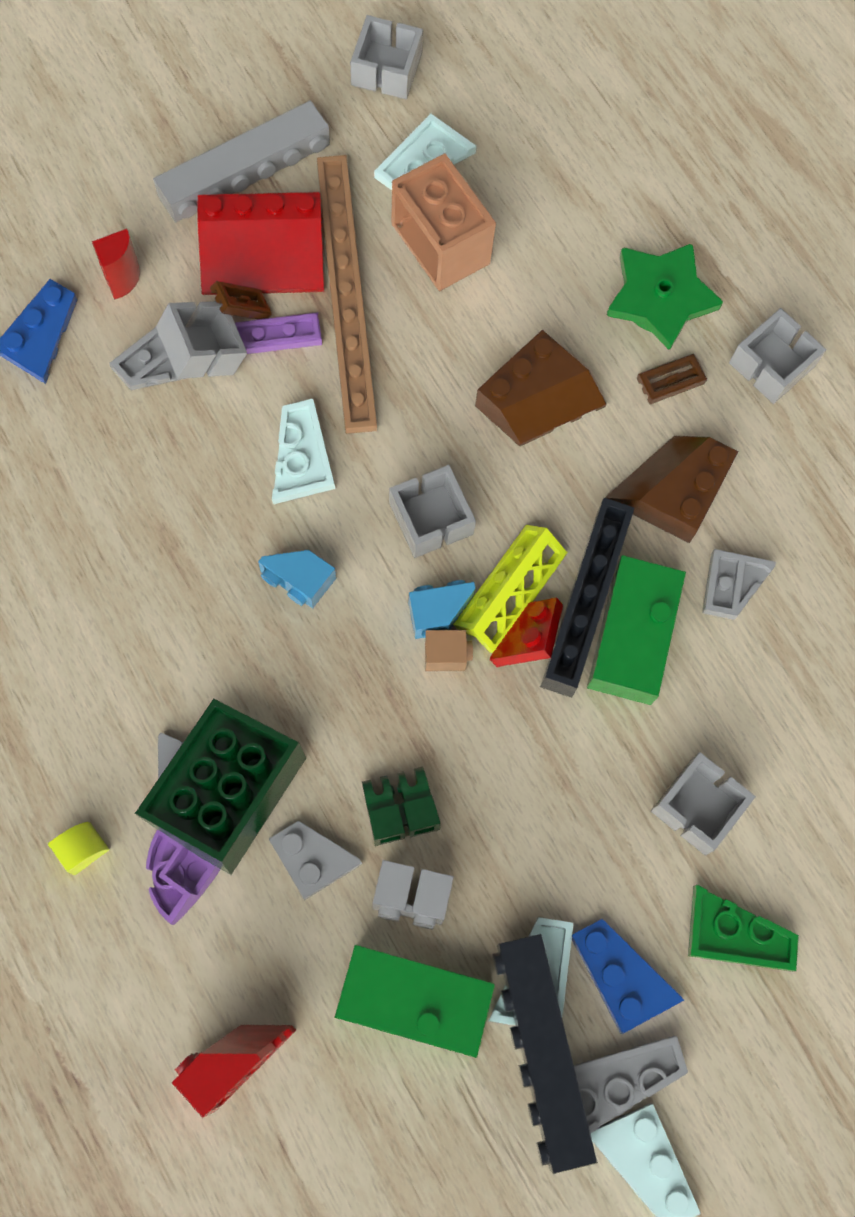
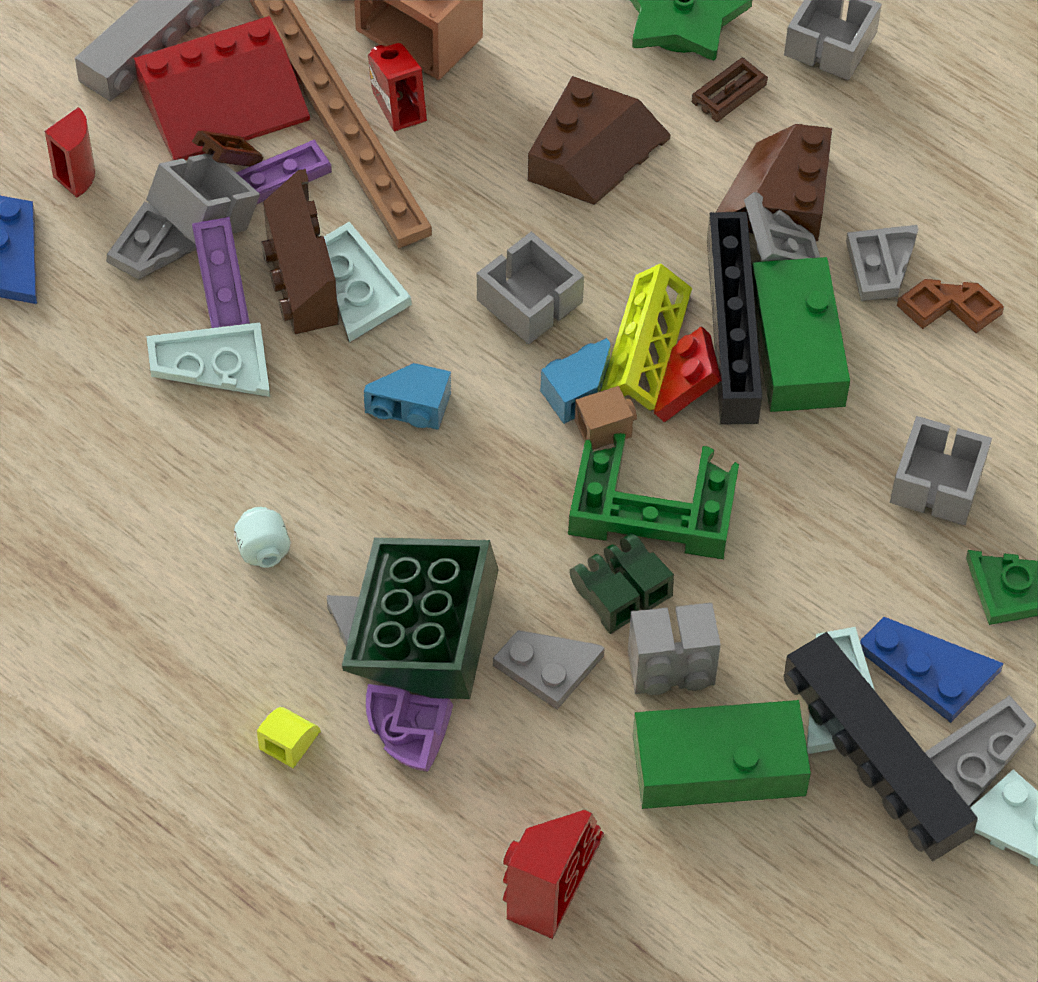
camera: 15 degrees left, 15 degrees down
(127, 662) = (262, 537): none -> light aqua head
(157, 482) = (213, 358): none -> light aqua wing
(187, 415) = (220, 273): none -> medium lavender tile
(255, 422) = (299, 257): none -> reddish brown wedge
(400, 274) = (393, 70): none -> red torso
(410, 737) = (601, 509): none -> green wedge
(655, 537) = (777, 234): none -> light grey wing
(789, 643) = (967, 301): none -> dark orange tile

